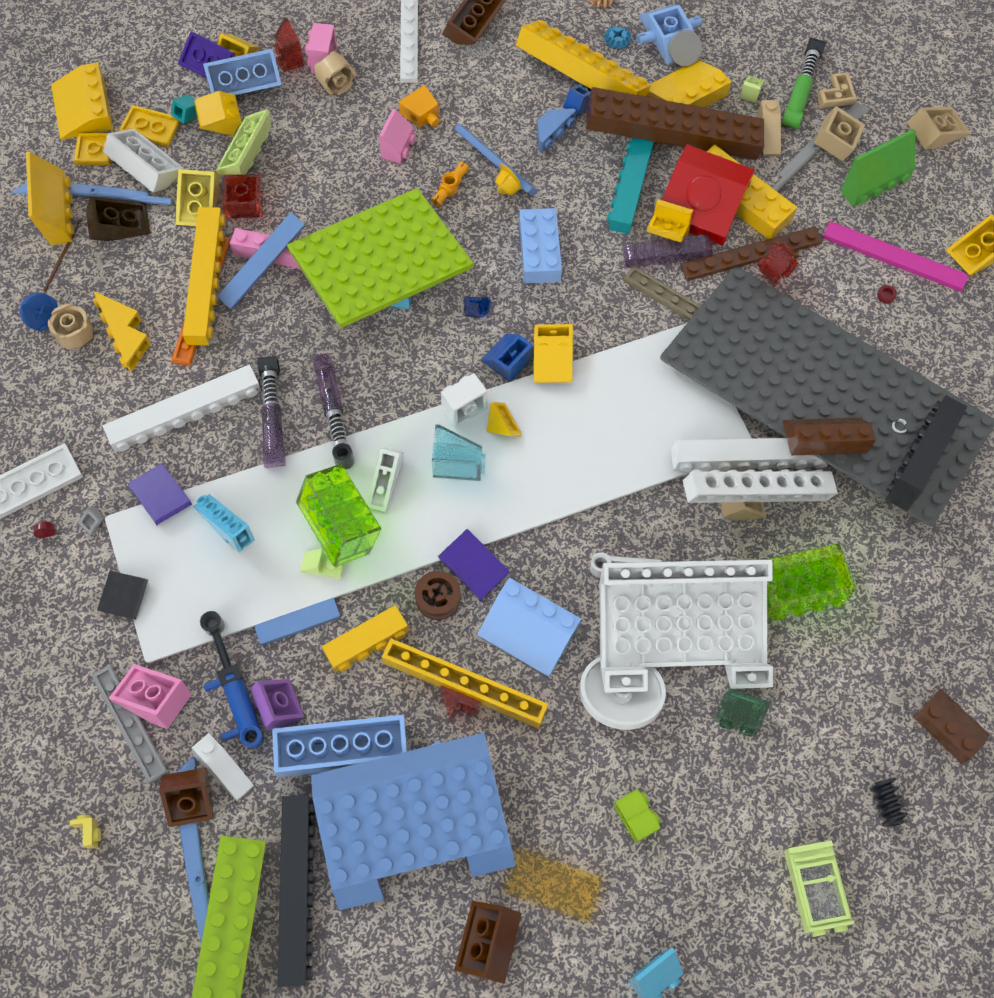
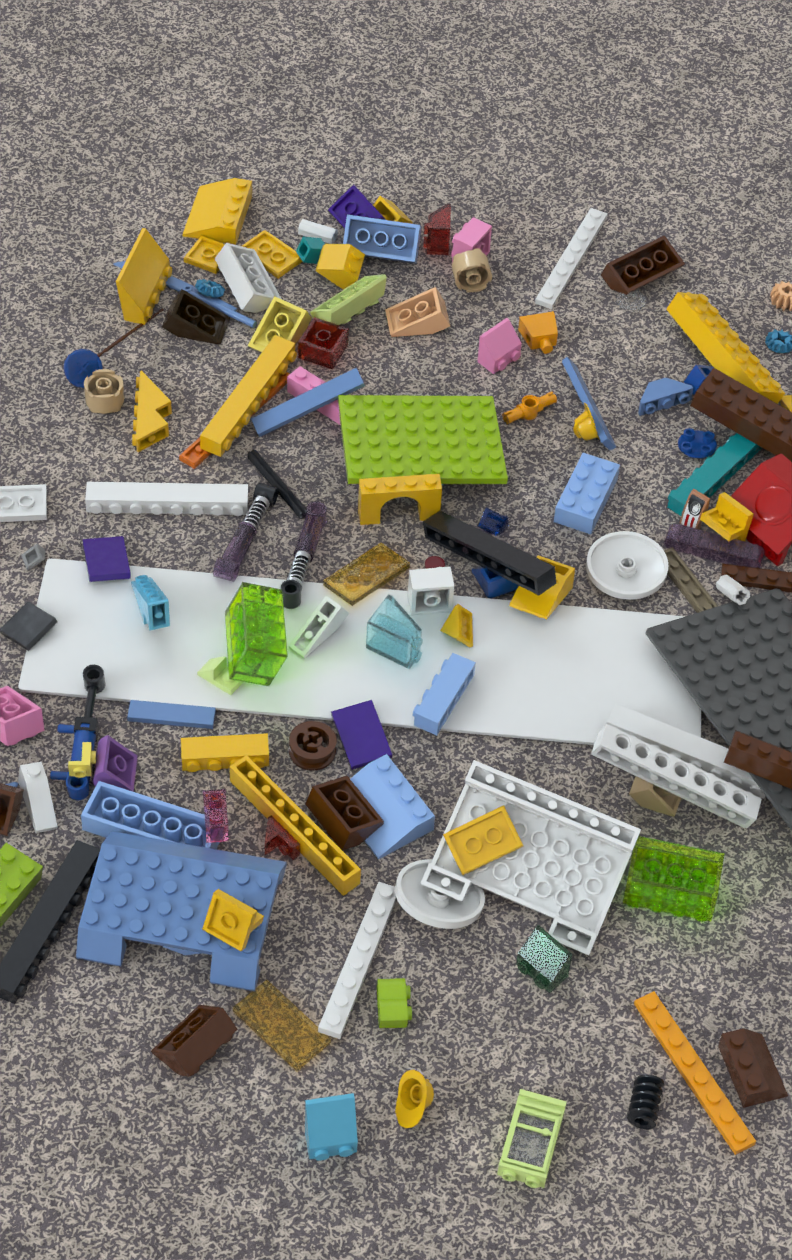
camera: 25 degrees right, 15 degrees down
(113, 182) = (209, 288): none -> dark azure gear
(180, 88) = (317, 230): none -> white axle
(251, 711) = (83, 768): none -> light yellow bracket
(272, 349) = (274, 480): none -> black axle
(310, 134) = (418, 315): none -> light nougat slope
(368, 327) = (377, 491): none -> yellow arch
(396, 405) = (366, 574): none -> clear yellow tile
(398, 717) = (215, 815): none -> clear pink slope
(448, 370) = (434, 562): none -> dark red tile
(474, 823) = (231, 920): none -> yellow bracket
(496, 342) = (490, 552): none -> black brick
(500, 649) = (343, 812): none -> reddish brown slope
(524, 493) = (444, 693): none -> light blue brick
(586, 789) = (358, 961): none -> white plate
(602, 159) = (697, 443): none -> blue dish
(609, 300) = (627, 565): none -> white dish
(637, 224) = (695, 505): none -> slope
(639, 627) = (483, 840): none -> yellow tile
(704, 903) = (413, 1098): none -> yellow piece
(705, 285) = (733, 589): none -> white axle
(909, 752) = (695, 1073): none -> light orange plate

